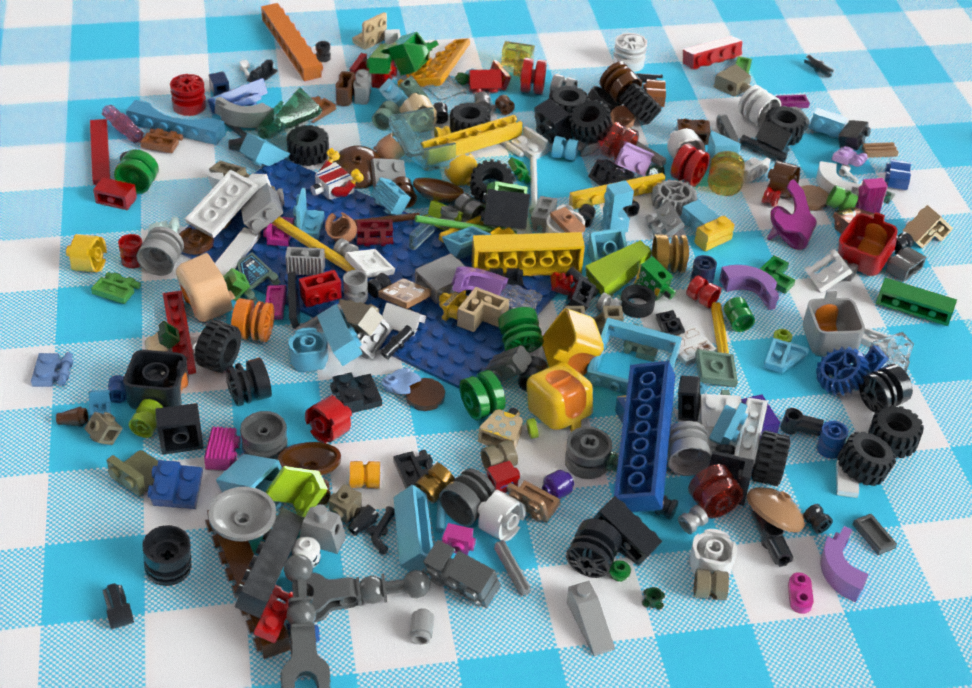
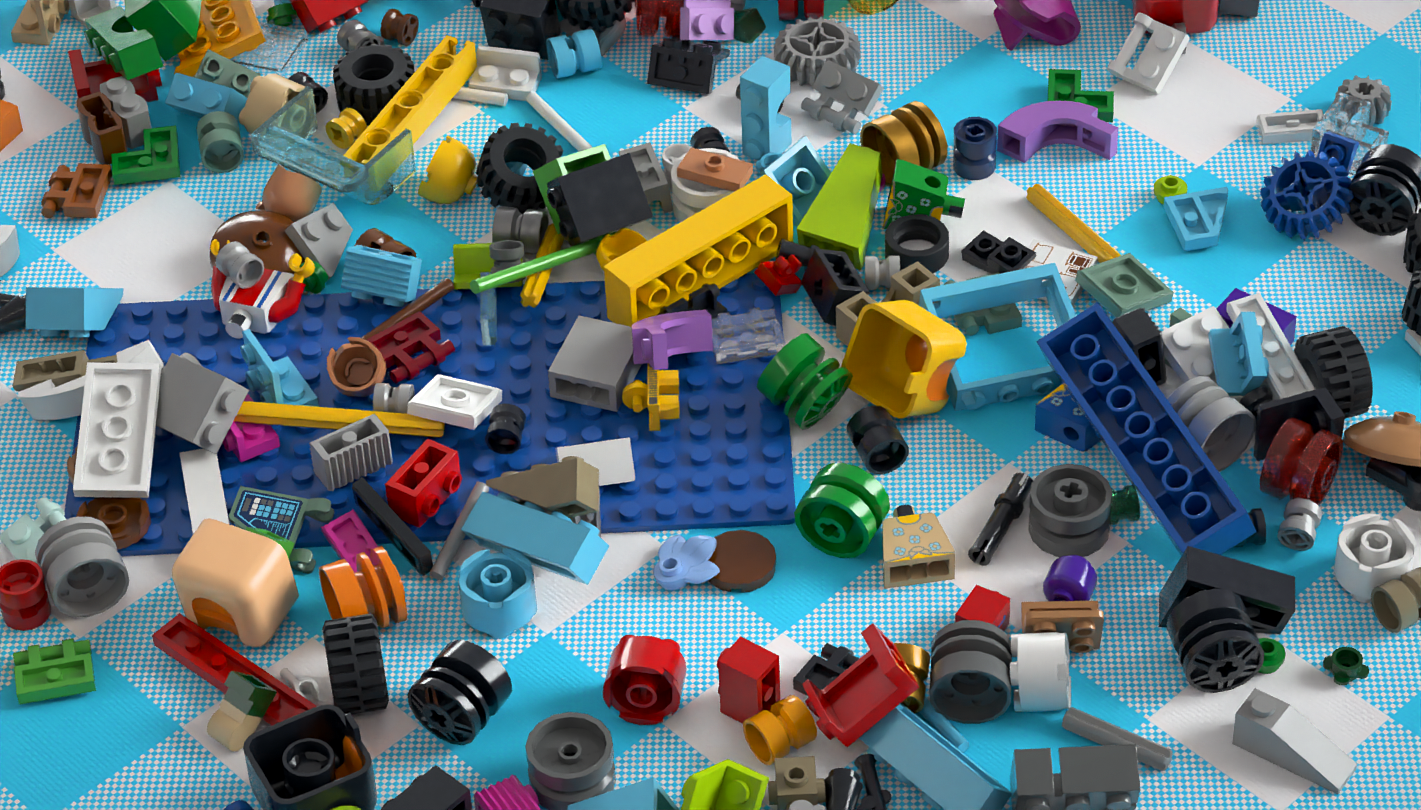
camera: 30 degrees left, 0 degrees up
(295, 112) = (59, 236): clear green windscreen -> none
(307, 145) = (140, 257): black tyre -> none
(311, 456) = (677, 750): reddish brown dish -> none
(332, 163) = (239, 265): none -> light grey wheel
(355, 112) = (155, 162): none -> green plate
(355, 286) = (477, 449): light grey wheel -> none
(356, 392) = (630, 610): black plate -> none
(368, 185) = (315, 282): none -> green plate
(368, 443) = (747, 680): none -> red brick
(397, 342) = (625, 503): black pin -> none
(397, 480) = (862, 691): none -> red panel
(404, 293) = (562, 419): medium nougat tile -> none
(437, 189) = (440, 225): reddish brown dish -> none
(459, 538) = (1000, 740): dark pink brick -> none
(461, 241) = (574, 284): medium azure slope -> none
(481, 307) = (713, 374): tan brick -> none
(501, 453) = (948, 588): dark tan wheel -> none
(509, 363) = (834, 439): dark grey brick -> none
(519, 169) = (523, 117): green plate -> none
(532, 428) = (953, 521): lime tile -> none
(551, 441) = (1007, 508): none -> black pin
(560, 396) = (956, 449): yellow piece -> none
(596, 194) = (716, 87): yellow plate -> none
(697, 214) = (891, 64): medium azure brick -> none
(704, 291) = (1002, 179): red wheel -> none
(714, 233) = (933, 76): yellow brick -> none
(739, 314) = (1086, 187): green wheel -> none
(796, 421) = (1316, 303): black piece -> none
(832, 324) = (1236, 133): light grey piece -> none
(832, 439) = (1379, 303): blue wheel -> none
(916, 301) = (1308, 38): green brick -> none
(922, 342) = (1371, 91): none -> light grey gear

